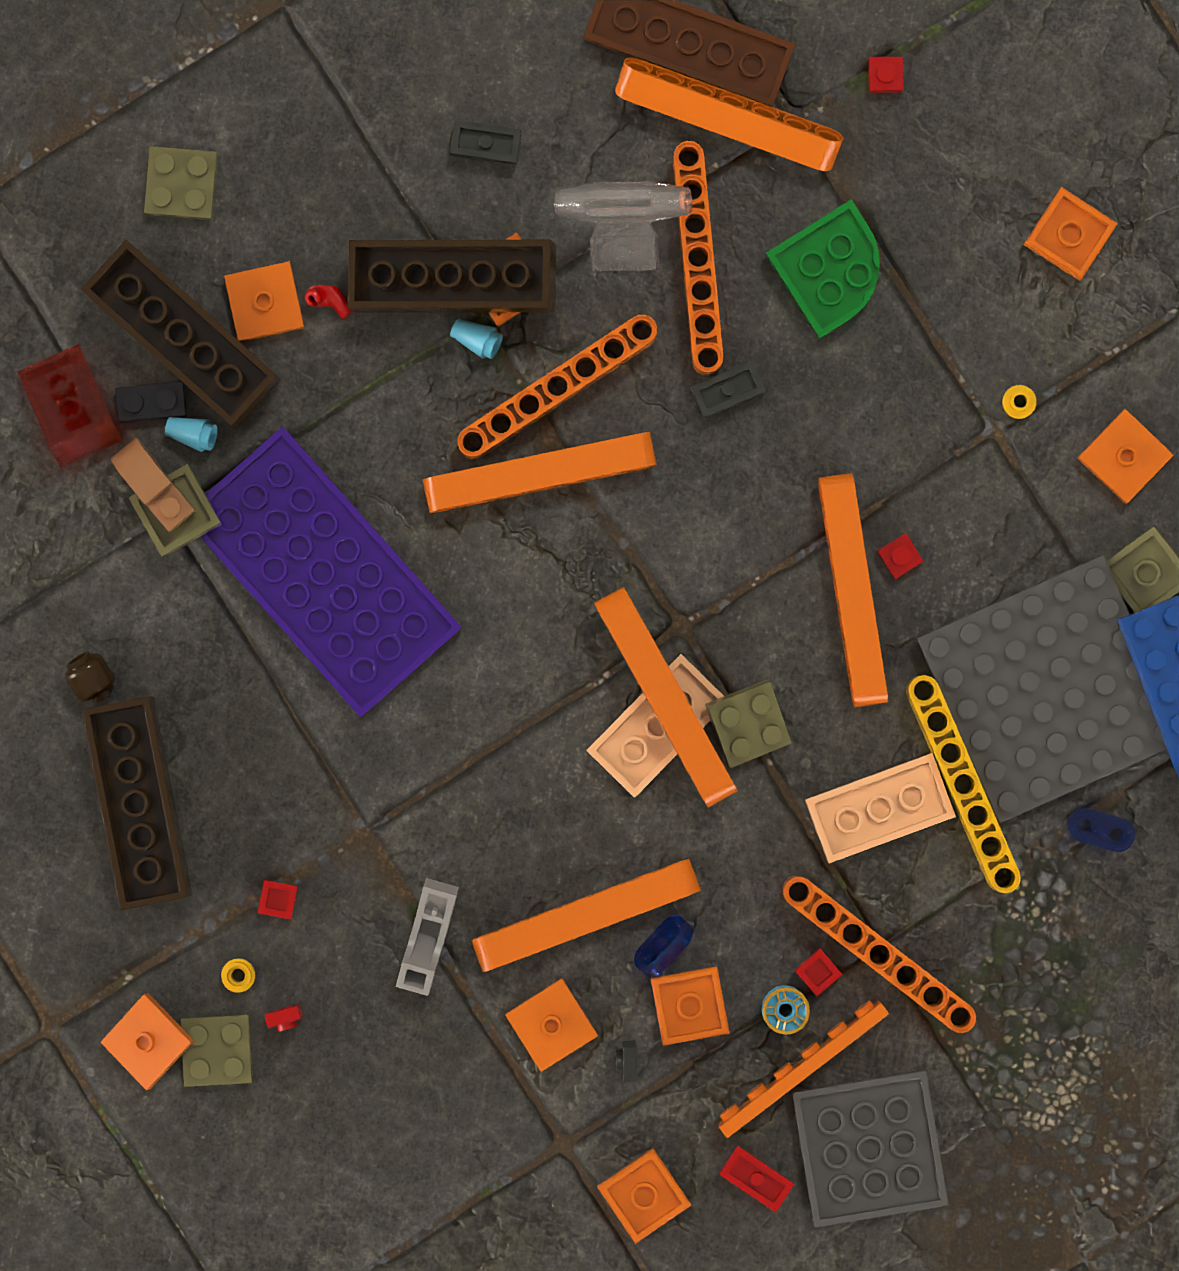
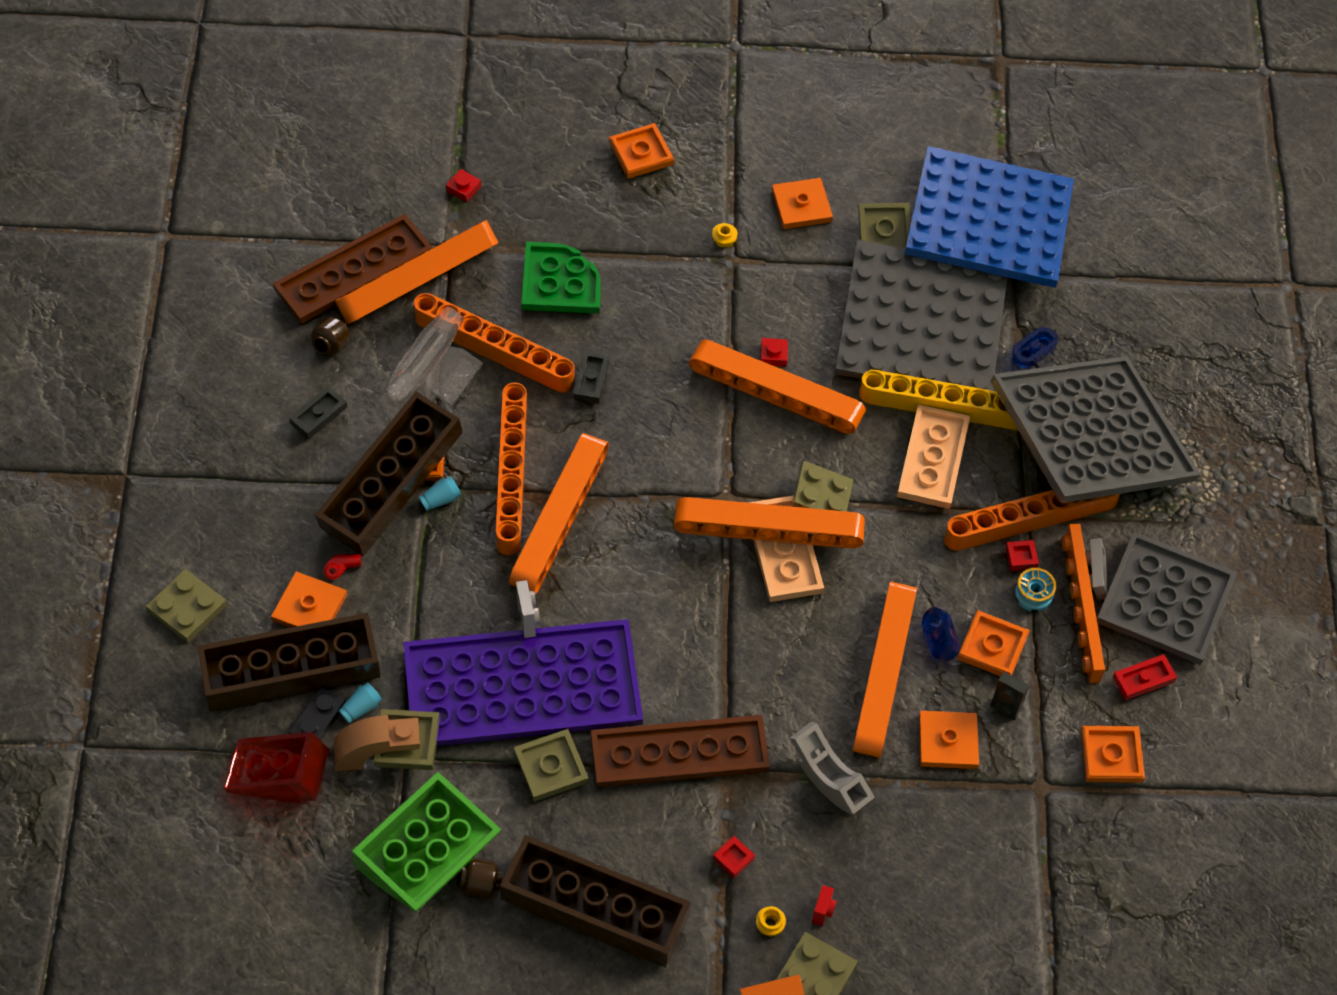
camera: 60 degrees left, 30 degrees down
(82, 608) = (424, 843): none -> bright green slope
(253, 661) = (551, 765): none -> olive plate
(354, 774) = (679, 751): none -> reddish brown plate
(390, 531) = (527, 609): none -> light grey plate
(583, 85) = (330, 336): none -> dark brown head
(864, 1053) = (1097, 559): none -> light grey plate
(1020, 961) = (1094, 429): none -> dark grey plate

